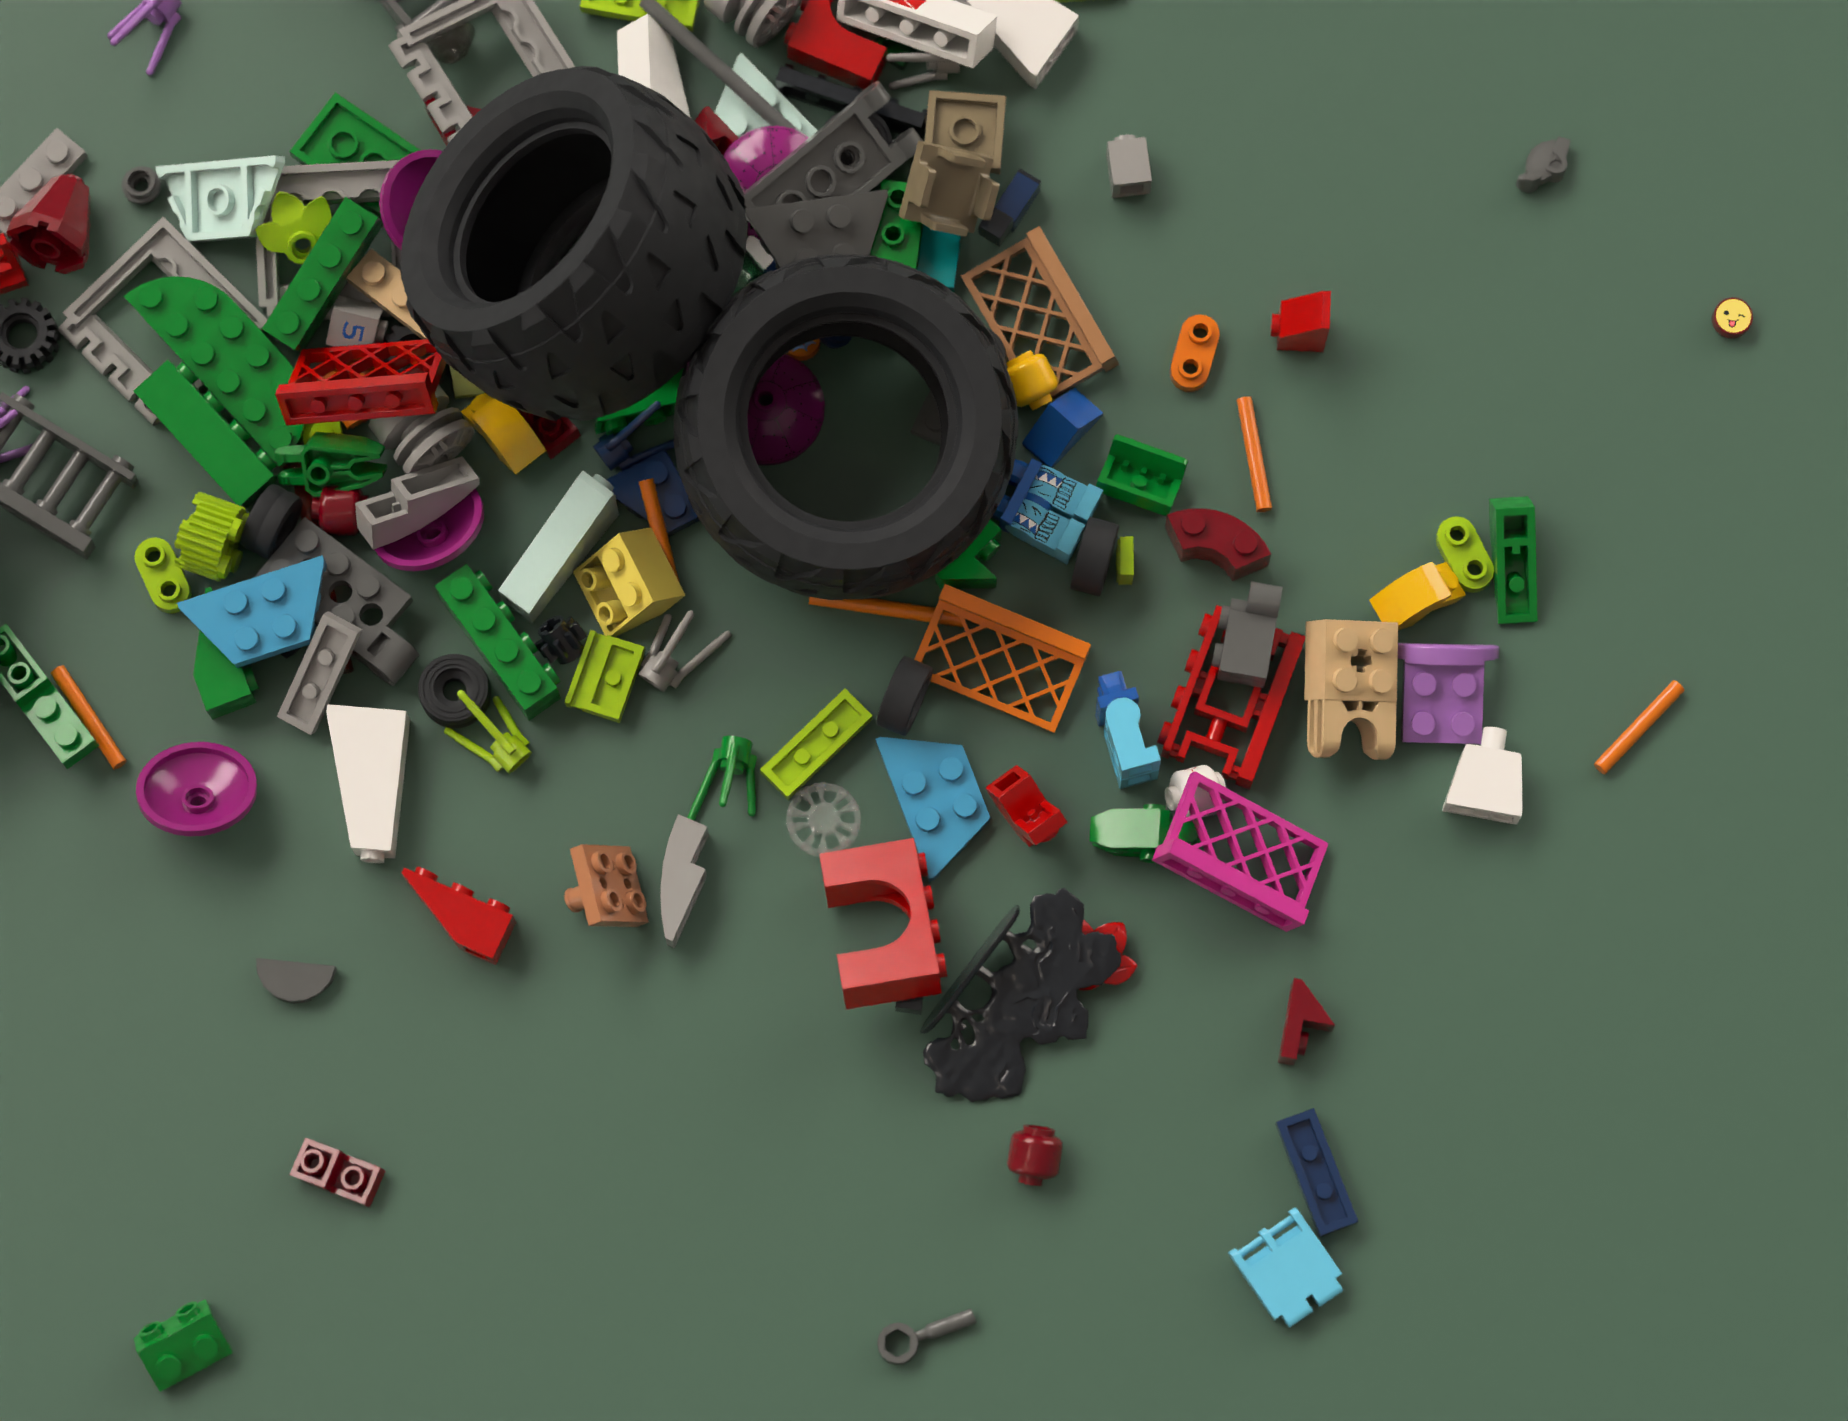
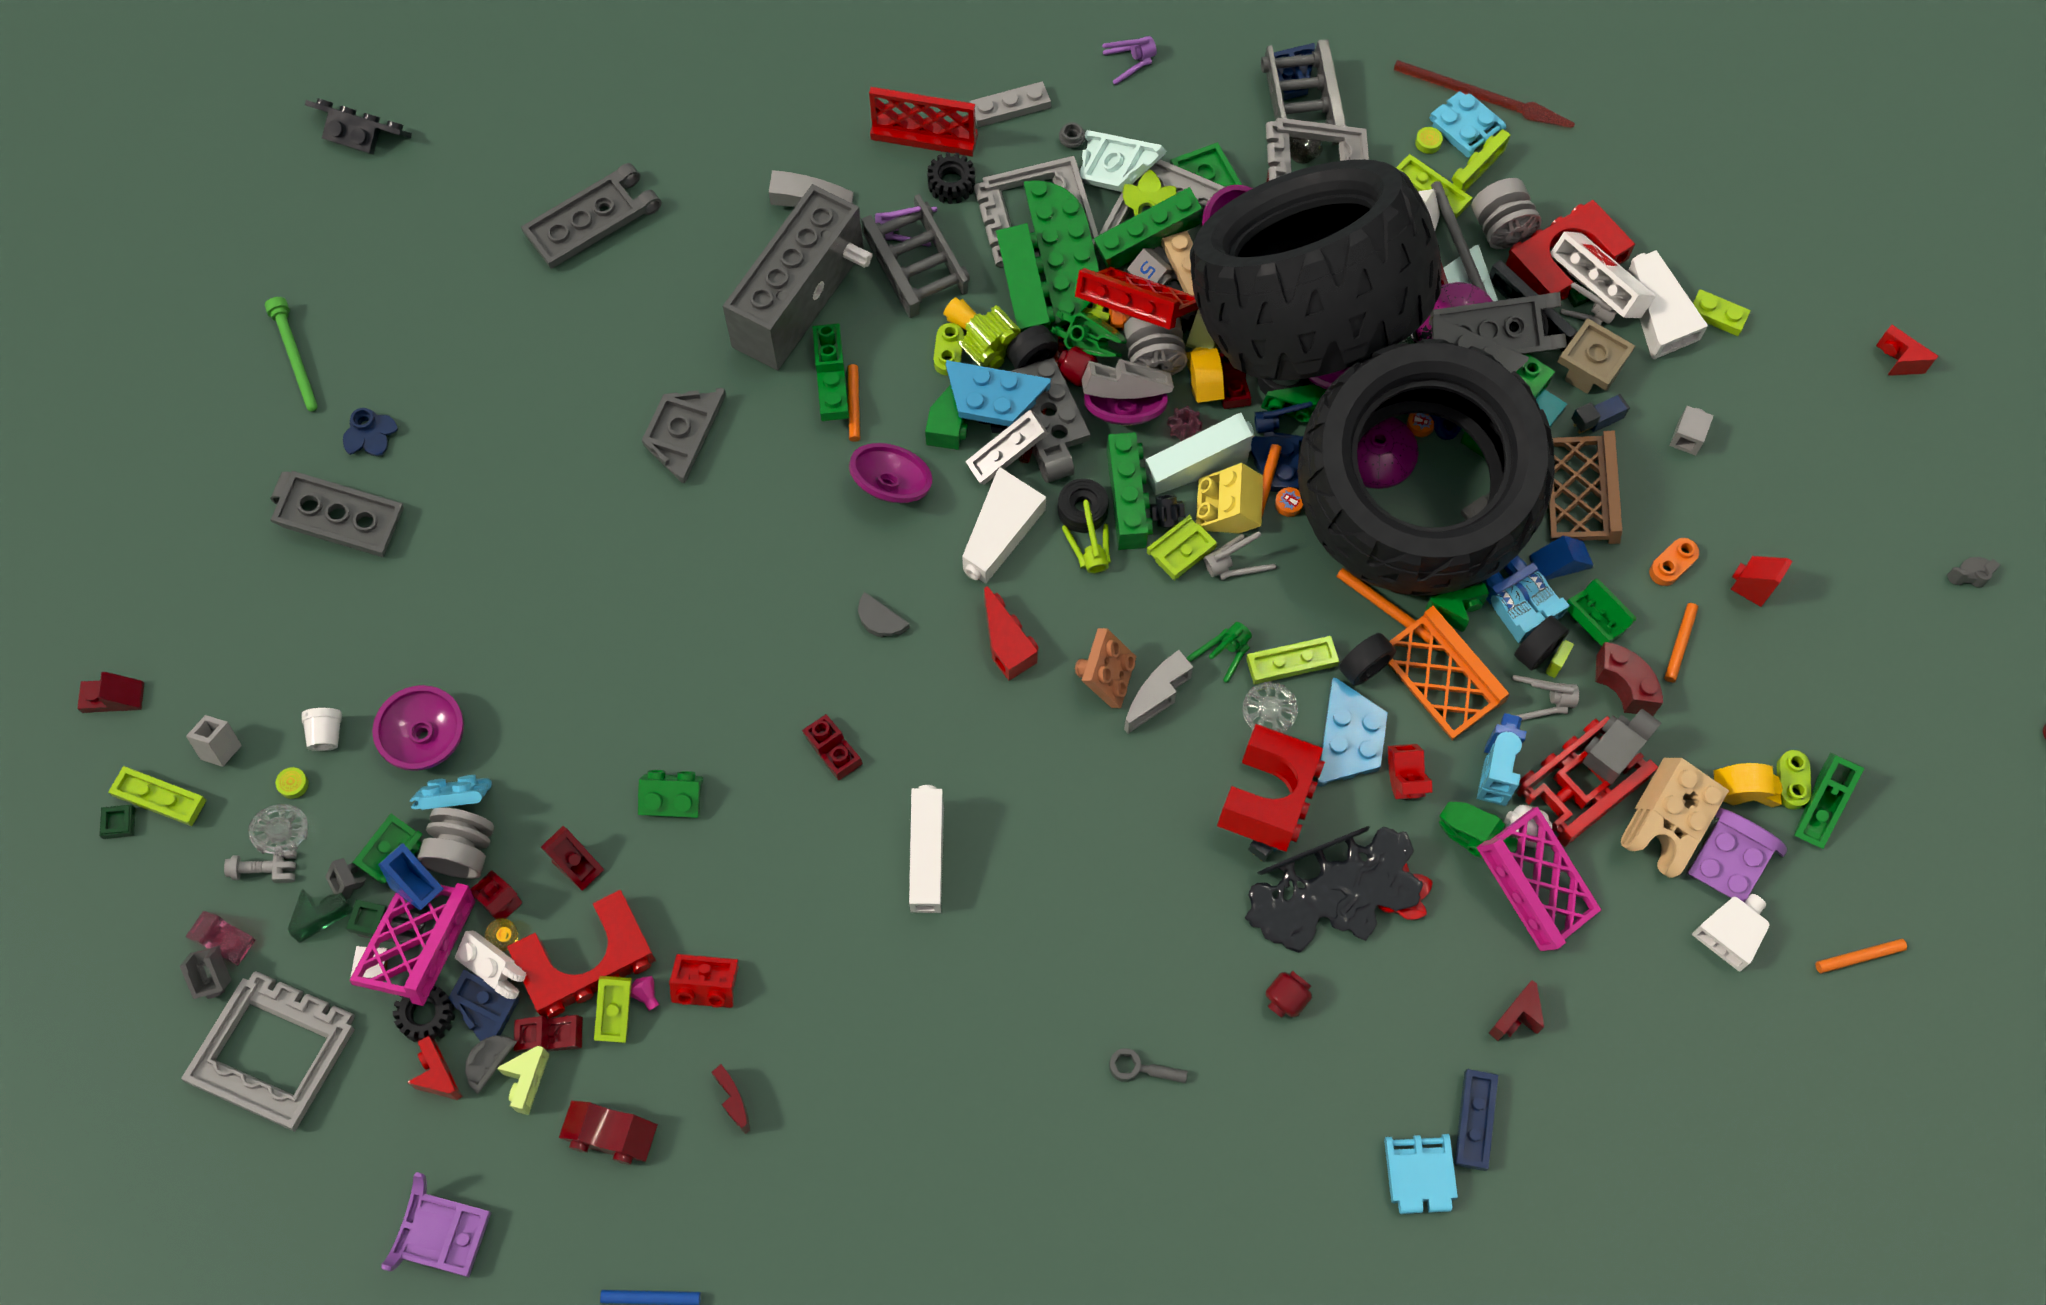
camera: 30 degrees right, 10 degrees down
(54, 225) = (1007, 128): dark red cone -> none
(154, 521) = (959, 312): none -> yellow cone
(506, 515) = (1191, 422): none -> clear pink gear
(527, 1233) = (926, 849): none -> white slope
(697, 541) = (1288, 502): none -> orange tile
(949, 189) = (1569, 376): dark tan panel -> none
(1032, 379) = (1559, 517): yellow head -> none
(1150, 603) = (1560, 694): none -> light grey plant

